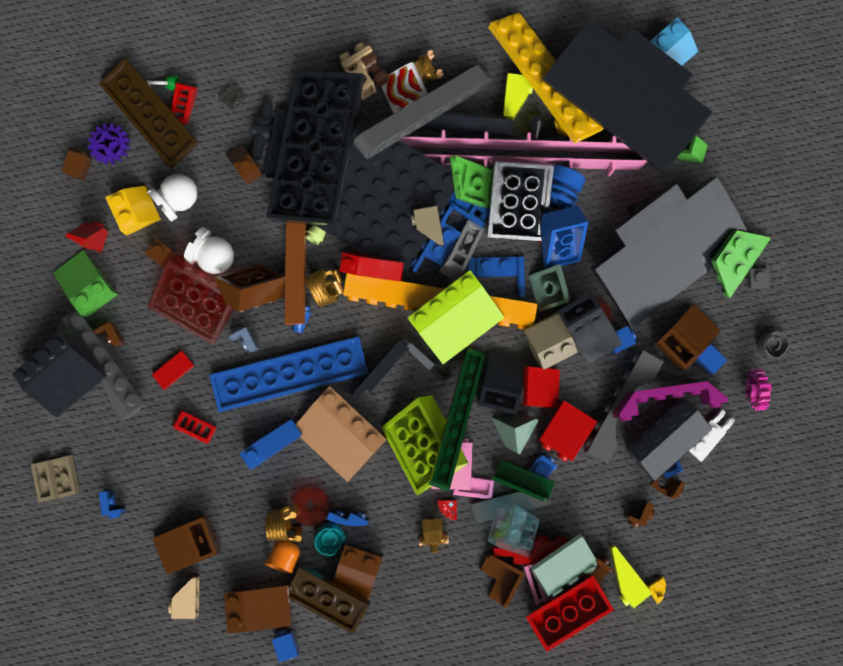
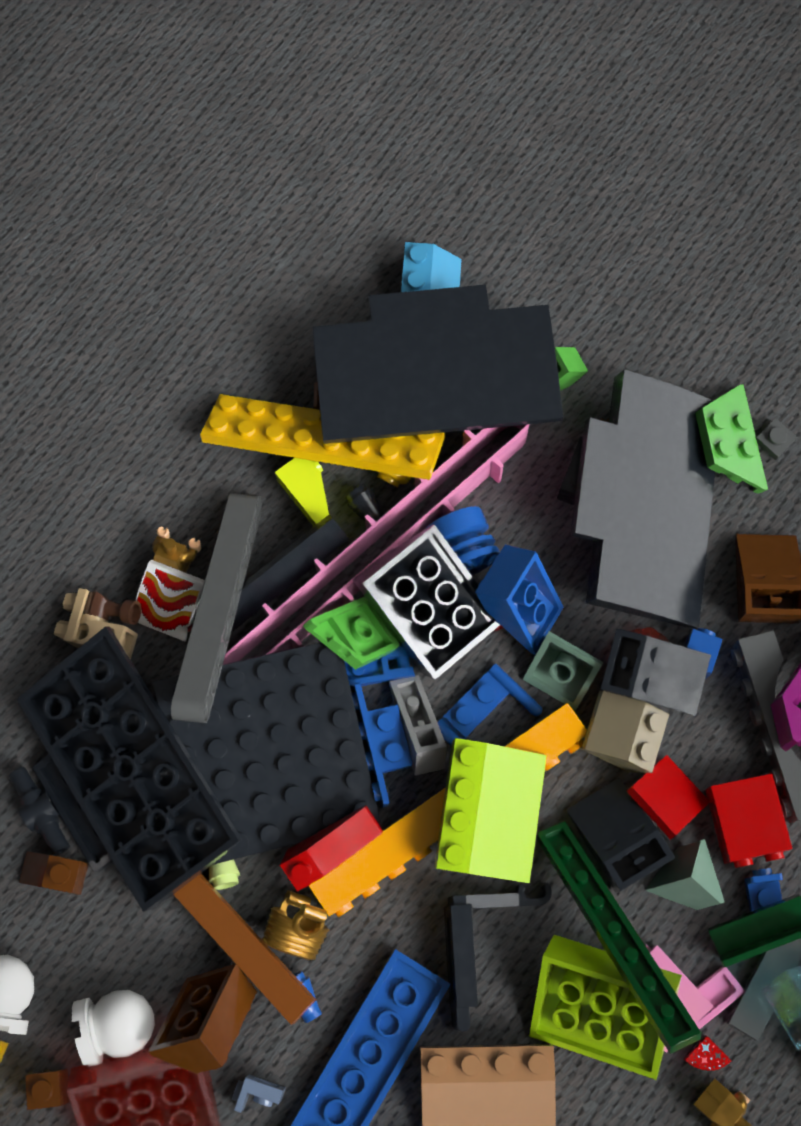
camera: 40 degrees left, 10 degrees down
(428, 223) = (351, 728): dark tan slope -> none

